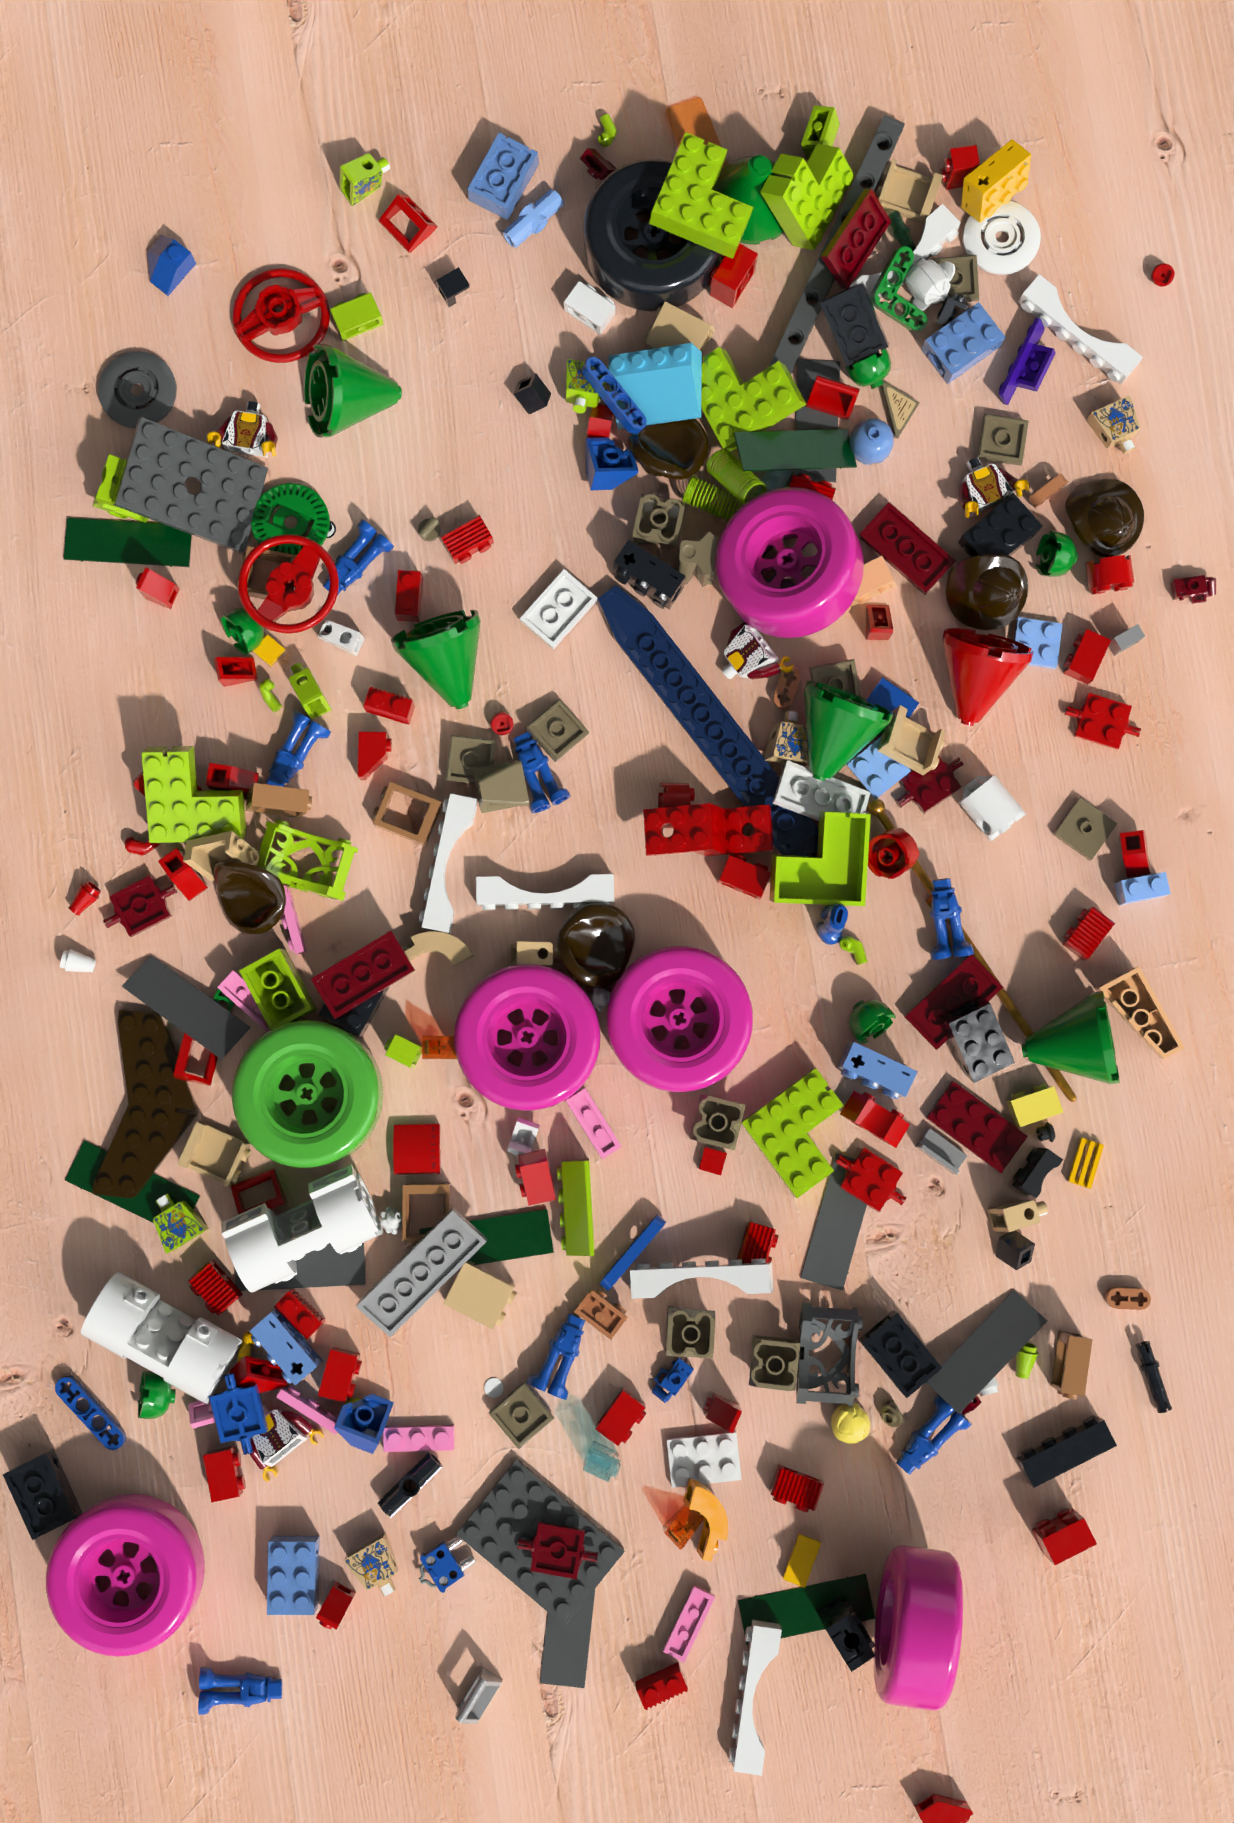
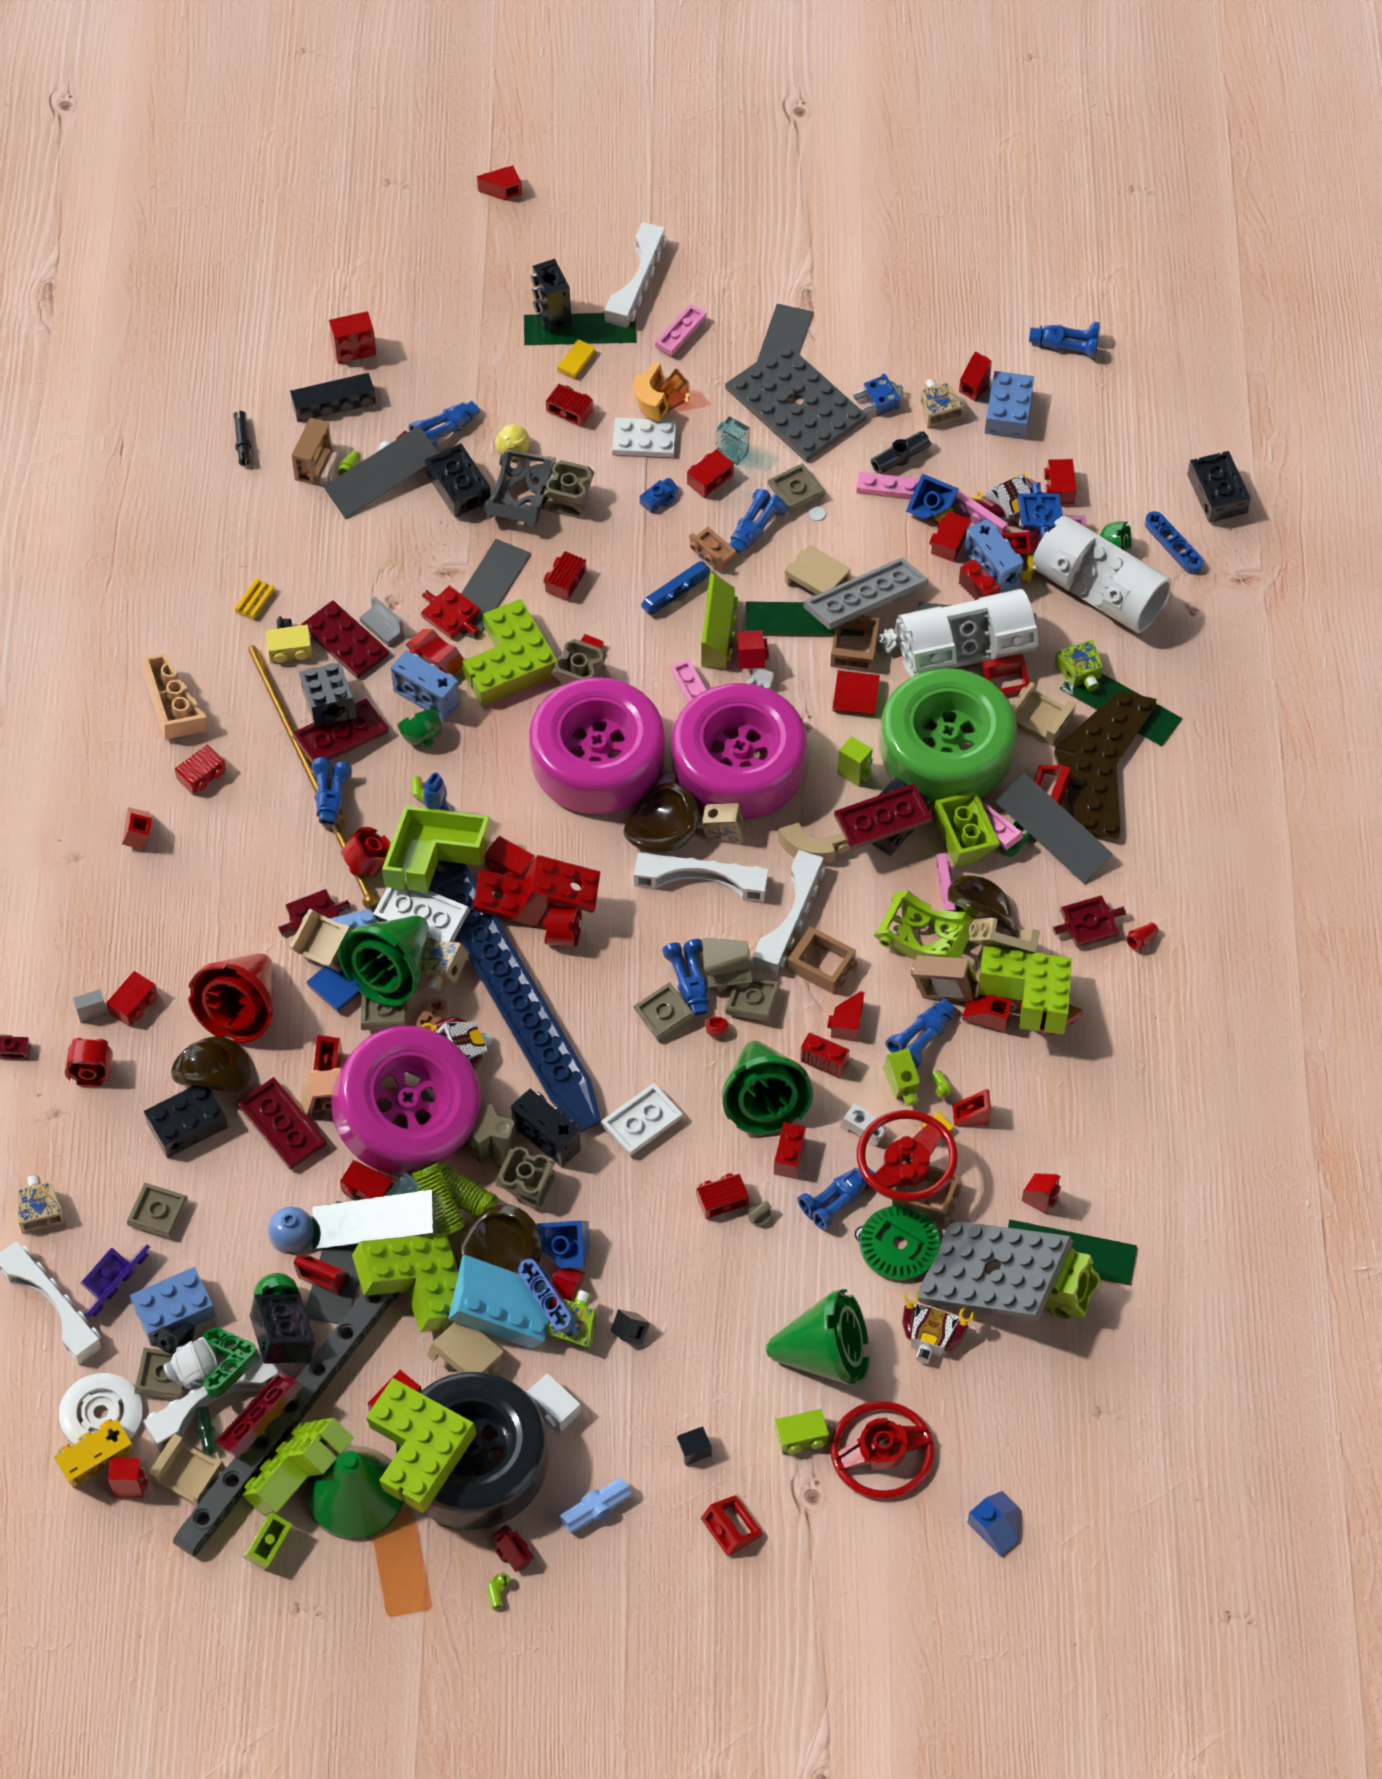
camera: 165 degrees left, 25 degrees down
(74, 1563) = (1160, 386): dark pink wheel -> none
(77, 962) = (1155, 884): white cone -> none
(116, 393) = (1022, 1403): dark grey piece -> none
(139, 848) = (1085, 971): red arm -> none
(182, 874) = (1050, 938): red slope -> none
(214, 1288) = (1053, 613): red brick -> none
(243, 630) = (965, 1145): green cylinder -> none
(361, 177) = (772, 1571): lime torso -> none
(438, 1047) = (823, 765): clear orange slope -> none
(478, 1697) = (867, 306): light grey tile -> none
(503, 176) = (620, 1548): medium blue piece -> none
(557, 1550) = (781, 386): dark red plate -> none
(661, 1685) = (712, 291): red brick -> none
(690, 1333) = (638, 519): dark tan piece -> none
(722, 1412) = (620, 460): red slope -> none
(749, 1277) = (578, 544): white arch -> none
(891, 1414) = (474, 444): dark tan plate -> none
(899, 407) = (253, 1257): tile -> none
(918, 1628) = (493, 278): dark pink wheel -> none
(987, 487) = (188, 1163): torso -> none
(990, 805) = (262, 878): white cylinder -> none
(1015, 1250) = (336, 542): black panel -> none
(1016, 1215) = (329, 563): tan torso -> none
(1031, 1177) = (302, 590): black brick -> none
(1042, 637) = (174, 1023): light blue plate -> none
(1048, 490) = (125, 1154): nougat beam -> none
(1056, 553) = (136, 1088): green cylinder -> none
(1077, 1042) = (237, 673): green cone -> none
(1085, 829) = (177, 857): dark tan plate -> none
(1103, 721) = (133, 944): red plate -> none
(1106, 516) = (77, 1122): dark brown piece -> none
(1127, 1303) = (247, 496): nougat beam -> none
(1142, 888) = (140, 794): light blue brick -> none

